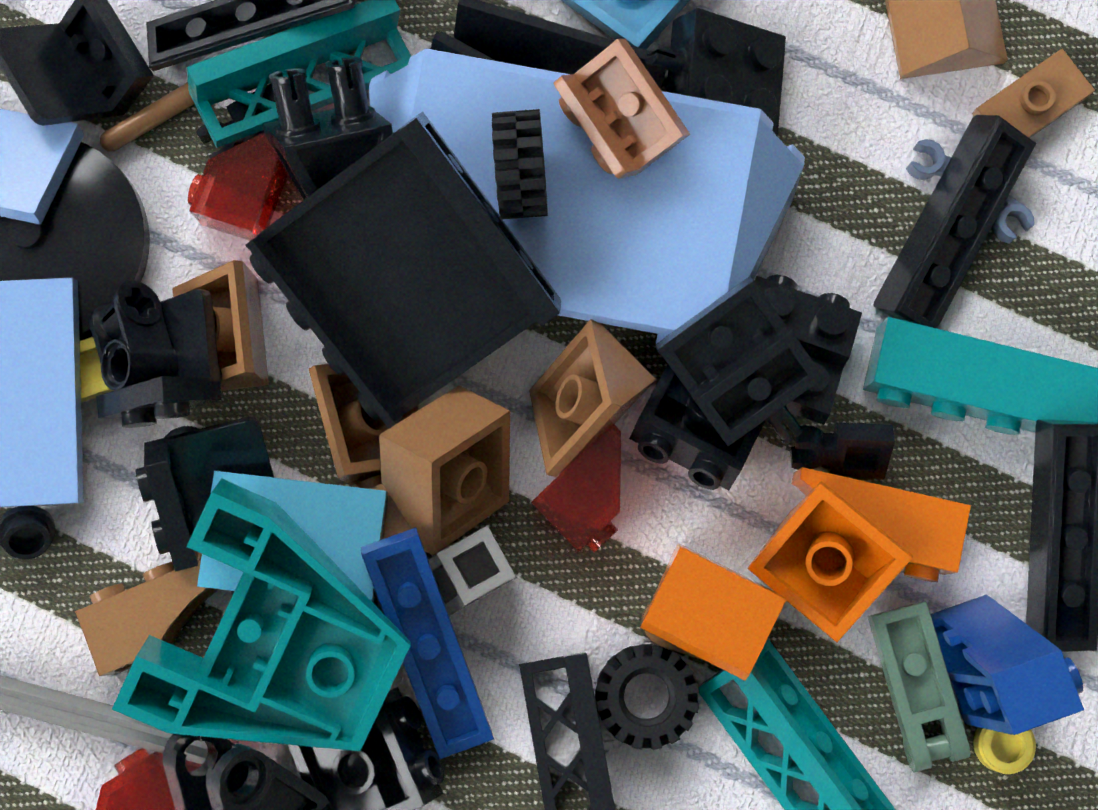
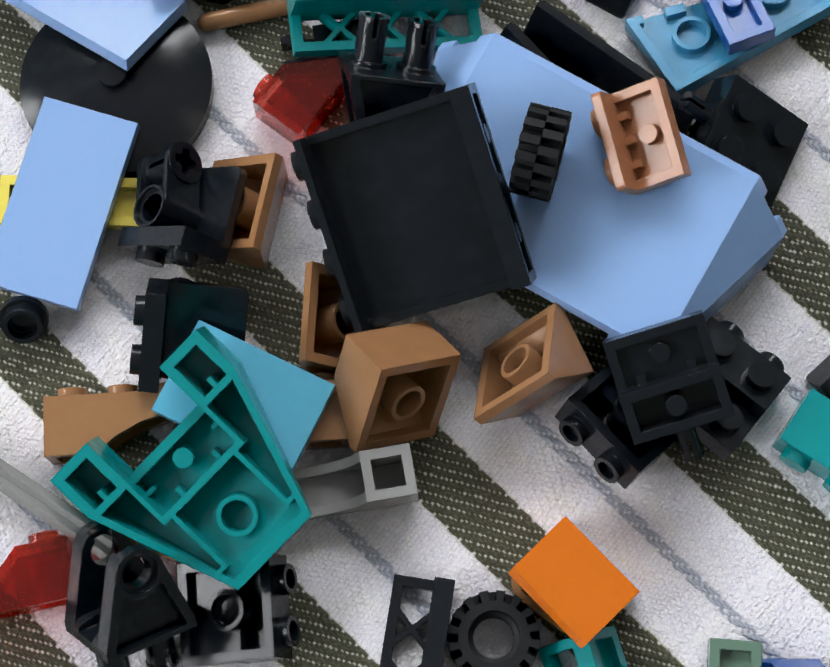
camera: 20 degrees right, 5 degrees down
(435, 658) = (326, 535): blue plate -> none
(586, 495) = (500, 450): clear red slope -> none
(829, 561) = (689, 576): orange slope -> none
(850, 451) = (740, 492): black plate -> none
(920, 523) = (761, 568): orange slope -> none

